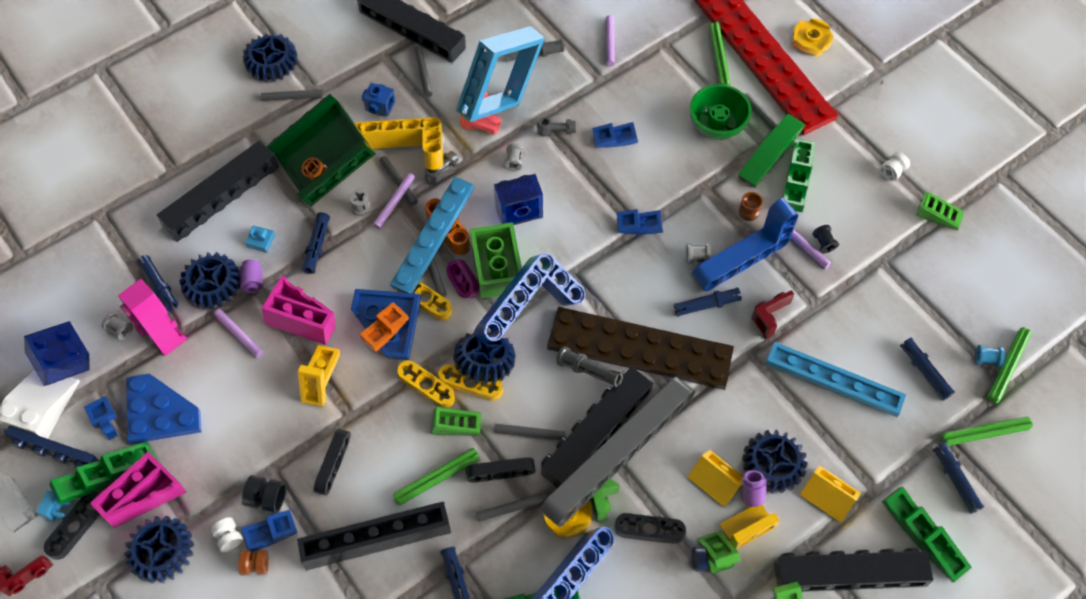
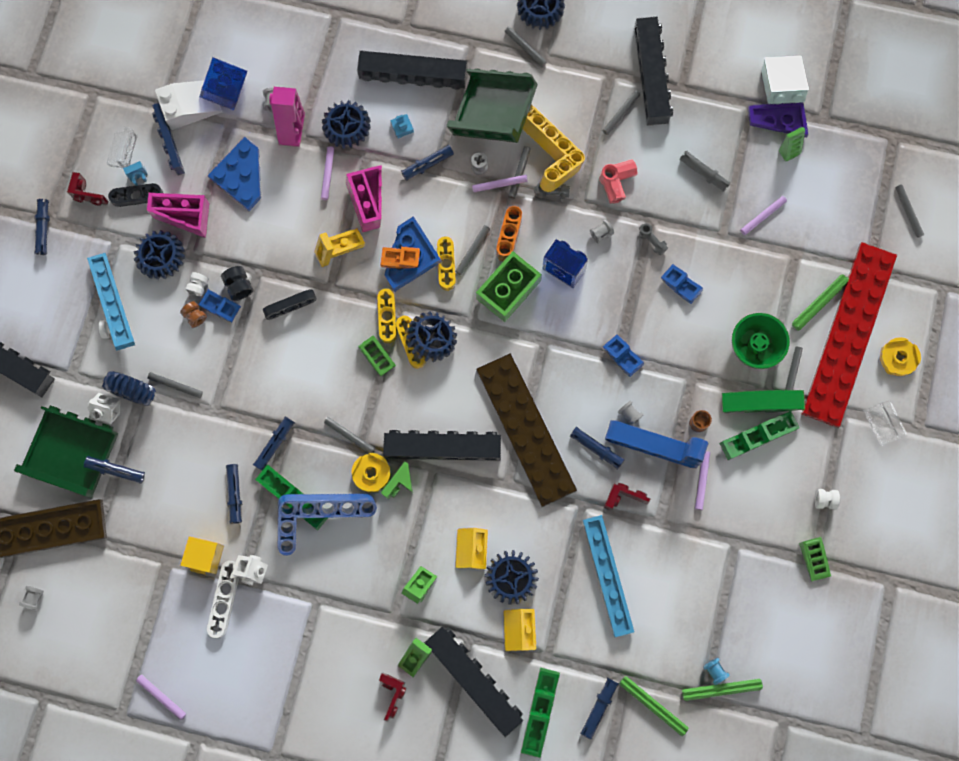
camera: 55 degrees right, 15 degrees up
(98, 474) = (174, 180): green slope -> none
(100, 414) = (210, 145): blue plate -> none
(161, 289) = (316, 101): dark blue pin -> none
(251, 276) = (369, 145): medium lavender brick -> none
(313, 168) = (473, 114): dark orange wheel -> none
(373, 536) = (262, 370): black brick -> none
(378, 99) = (568, 105): blue brick -> none
(432, 236) = (490, 231): dark azure plate -> none
(436, 476) = (332, 374): bright green axle -> none
(463, 281) = (478, 275): magenta plate -> none
(472, 102) = (612, 173): dark azure window -> none
(500, 470) = (366, 409): black beam -> none
(525, 292) = (492, 327): blue beam -> none
(529, 431) = (408, 407): dark grey bar -> none
(580, 363) = (478, 400): dark grey pin -> none
(616, 452) = (433, 472): dark grey beam -> none
(642, 535) = (399, 516): black beam -> none
(699, 559) = (405, 577): dark blue tile -> none
(748, 525) = (454, 591): yellow panel -> none
(753, 488) = (478, 577): medium lavender brick -> none
(825, 238) = (718, 492): black bush -> none
(922, 362) = (669, 633): dark blue pin -> none

